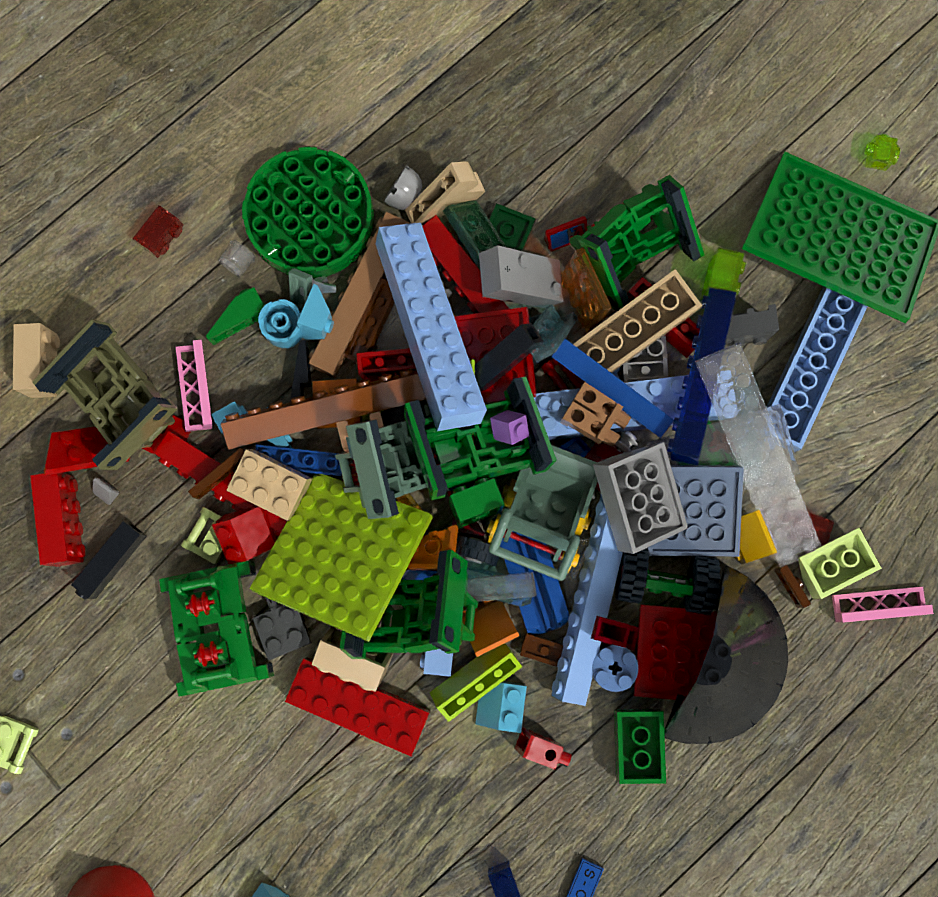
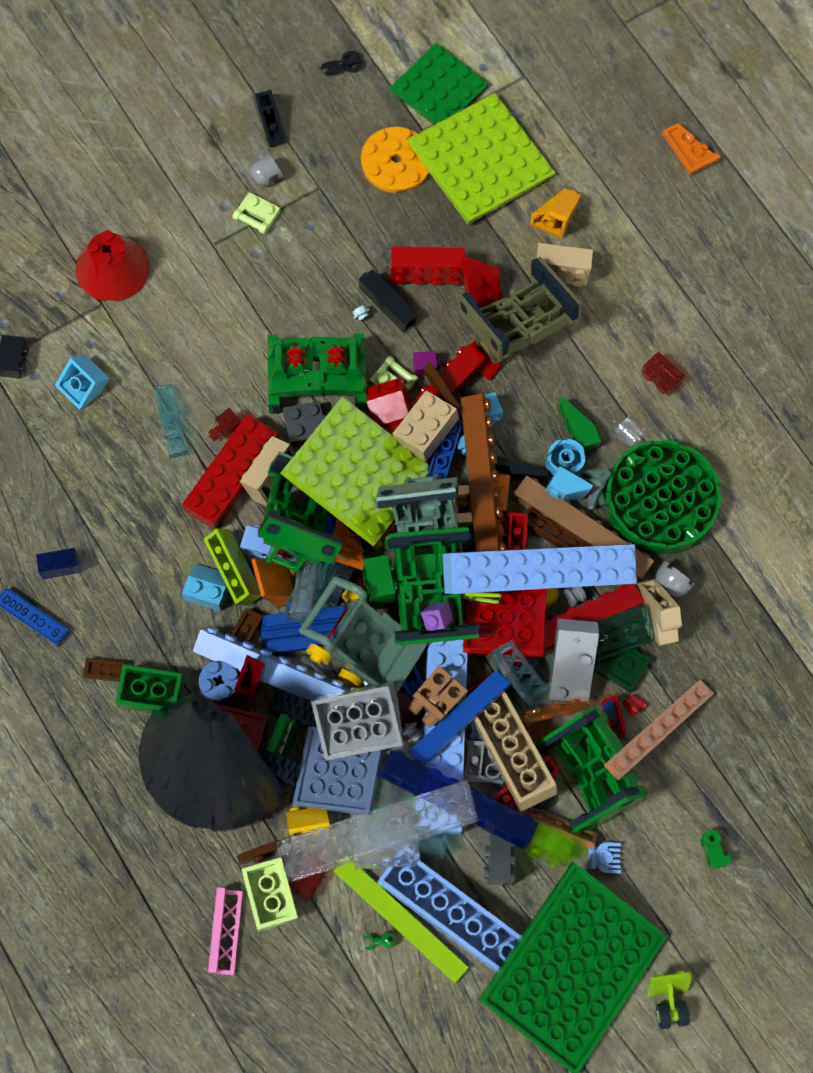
camera: 90 degrees right, 10 degrees down
(104, 491) = (446, 305): light grey slope -> none
(129, 589) = (361, 313): none -> light aqua plate
(183, 503) = (423, 358): none -> magenta brick
(202, 385) = (522, 390): bright pink fence -> none
(299, 723) = (225, 425): none -> clear red brick
(303, 793) = (170, 421): none -> clear light blue slope
(506, 355) = (499, 623): black brick -> none
(534, 748) = (166, 603): torso -> none
(548, 214) = (634, 704): none -> red piece
(582, 179) = (658, 730): none -> nougat plate
(622, 806) = (103, 669): none -> reddish brown plate
(688, 117) = (713, 851): none -> green leg
(696, 271) = (584, 839): none -> nougat plate
(718, 226) = (603, 857): none -> light blue piece
(834, 409) = (402, 921): none -> lime tile
(851, 434) = (384, 940): none -> green arm
(855, 134) = (667, 986): none -> lime plate
(882, 152) = (654, 1033): clear neon green brick -> none

